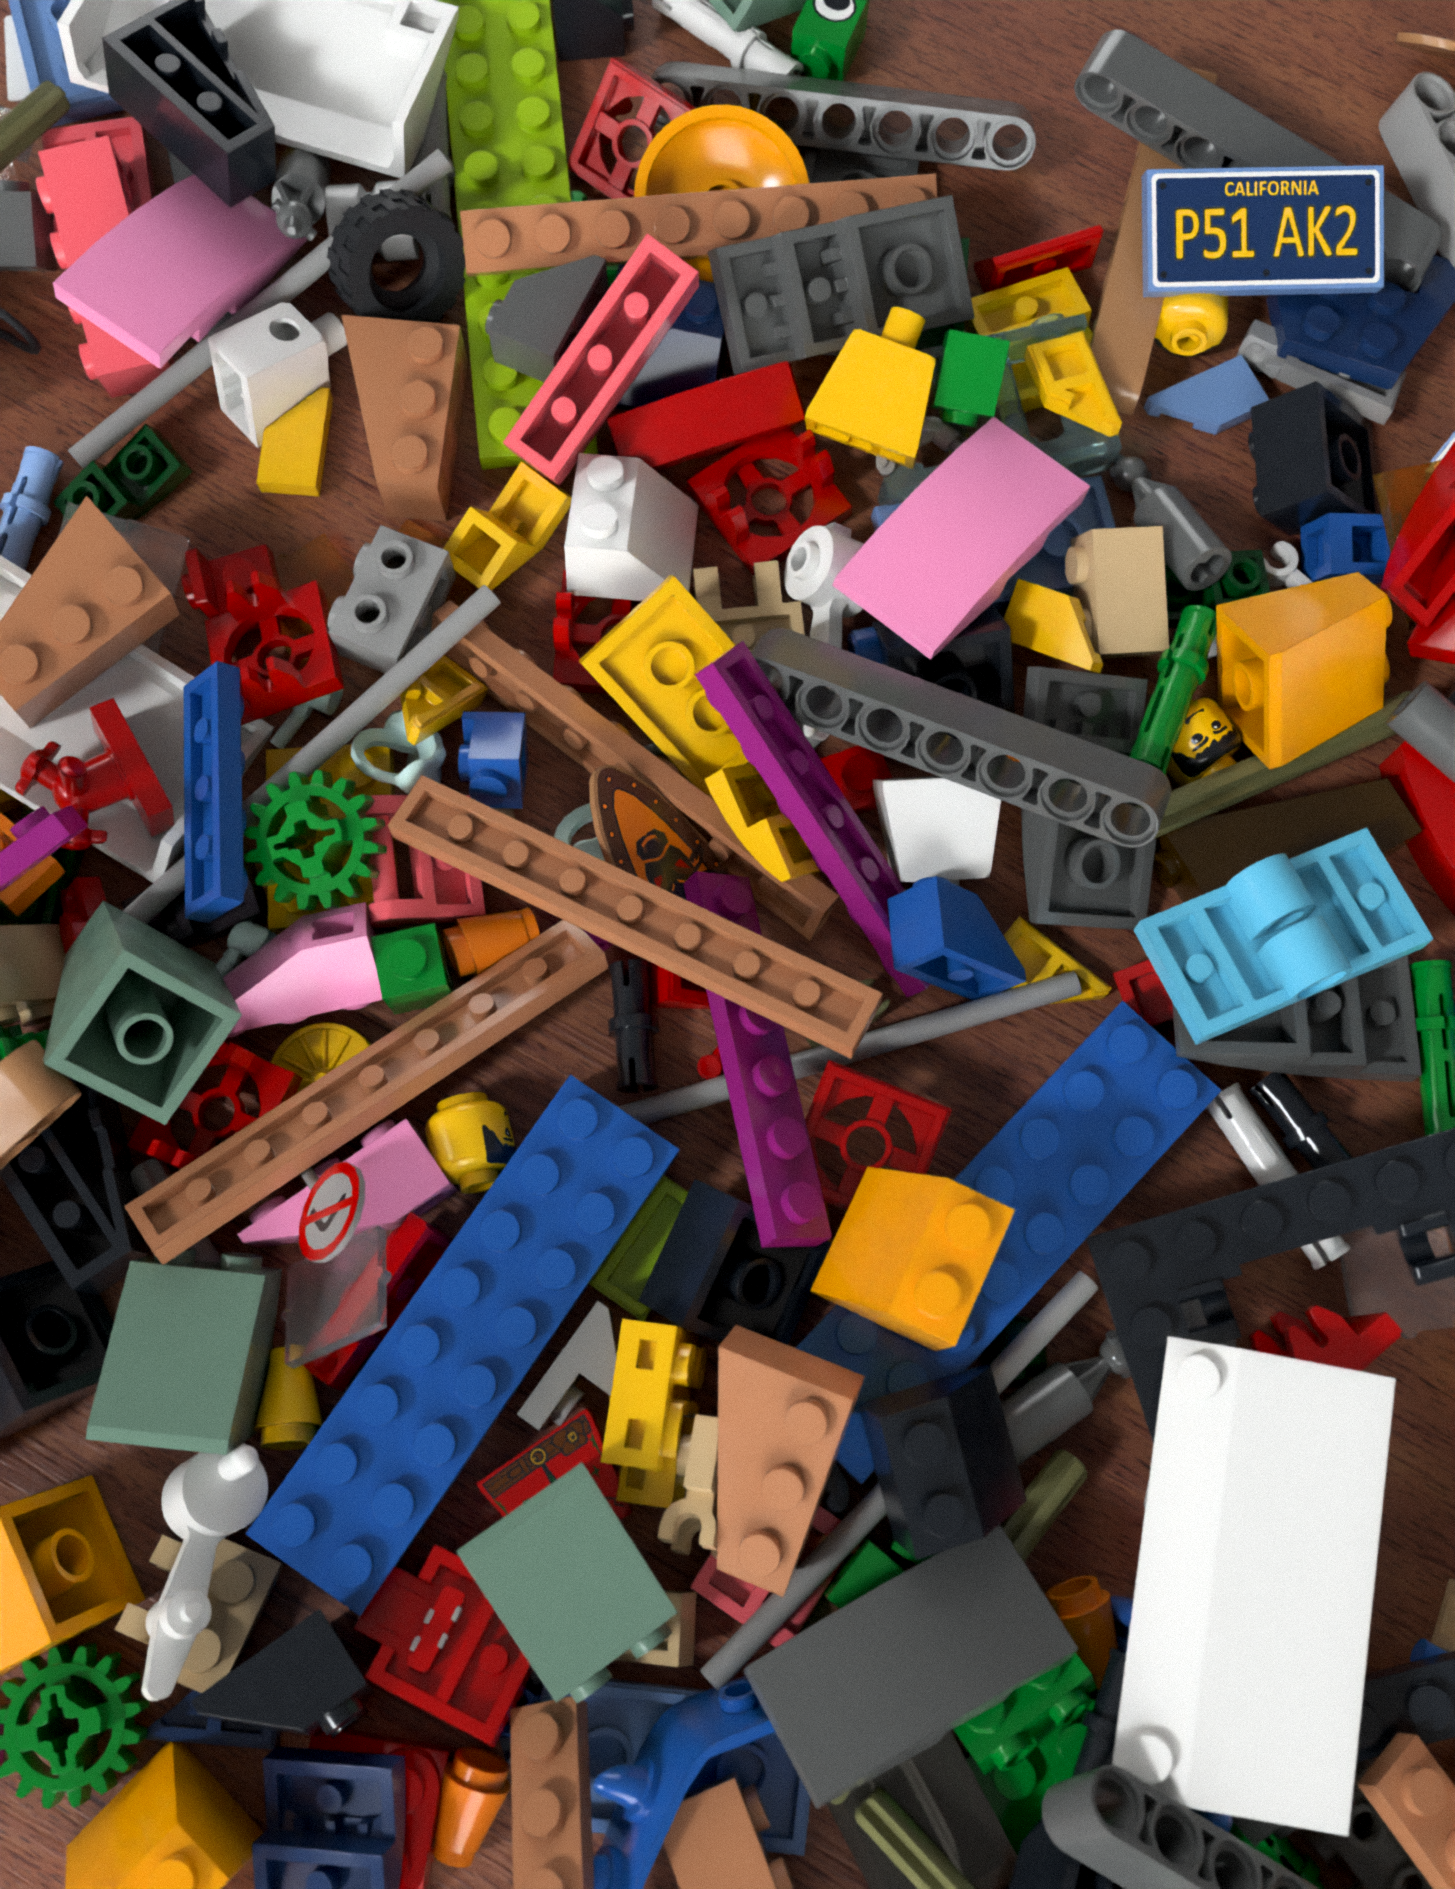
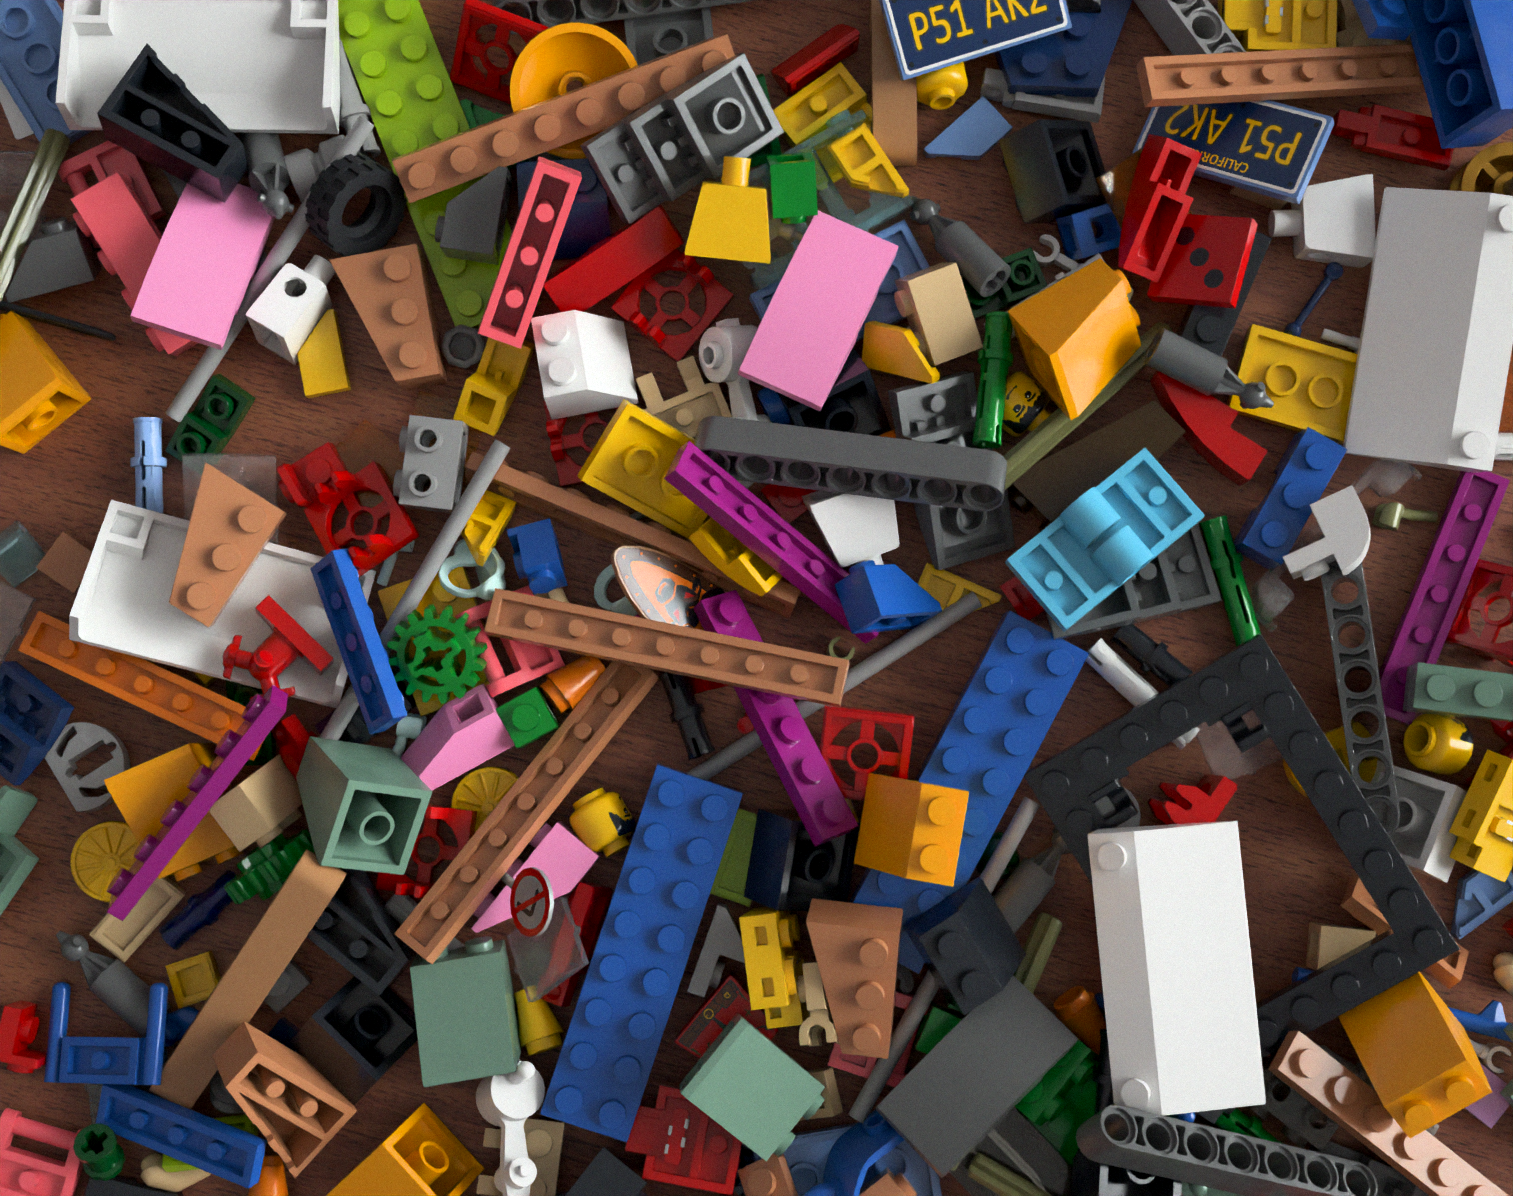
camera: 10 degrees left, 10 degrees up
(480, 476) = (463, 346): none -> dark grey tile

